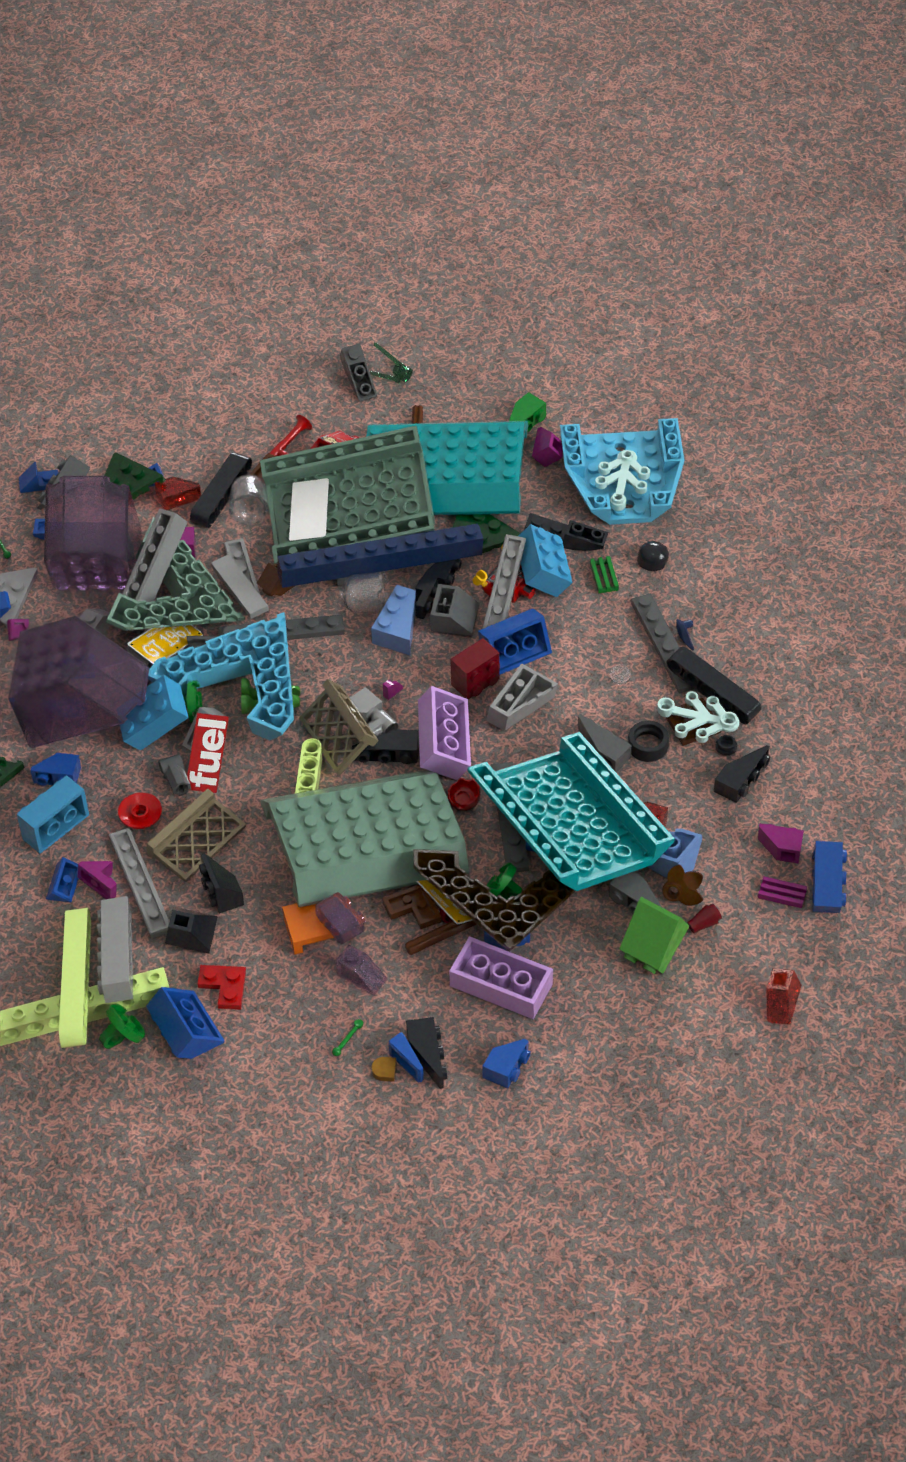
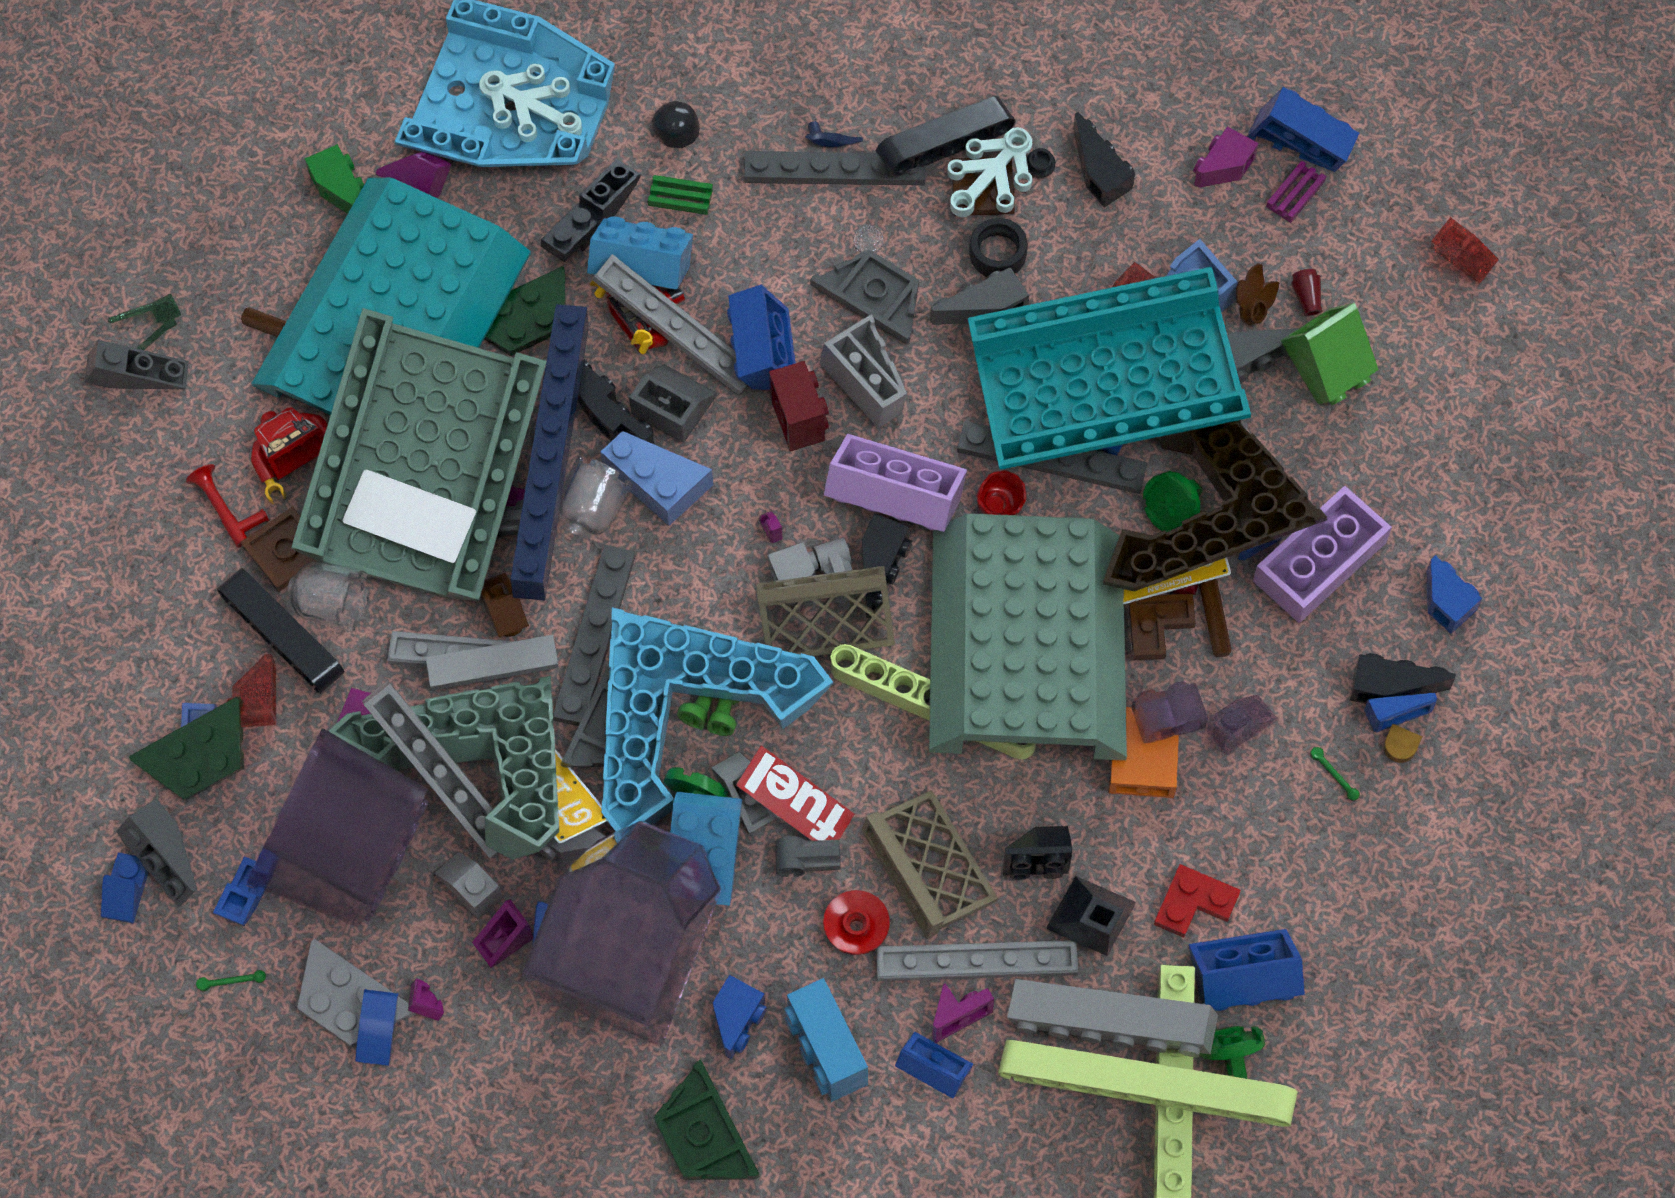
camera: 70 degrees left, 15 degrees up
(583, 689) = (876, 288): none -> dark grey wing

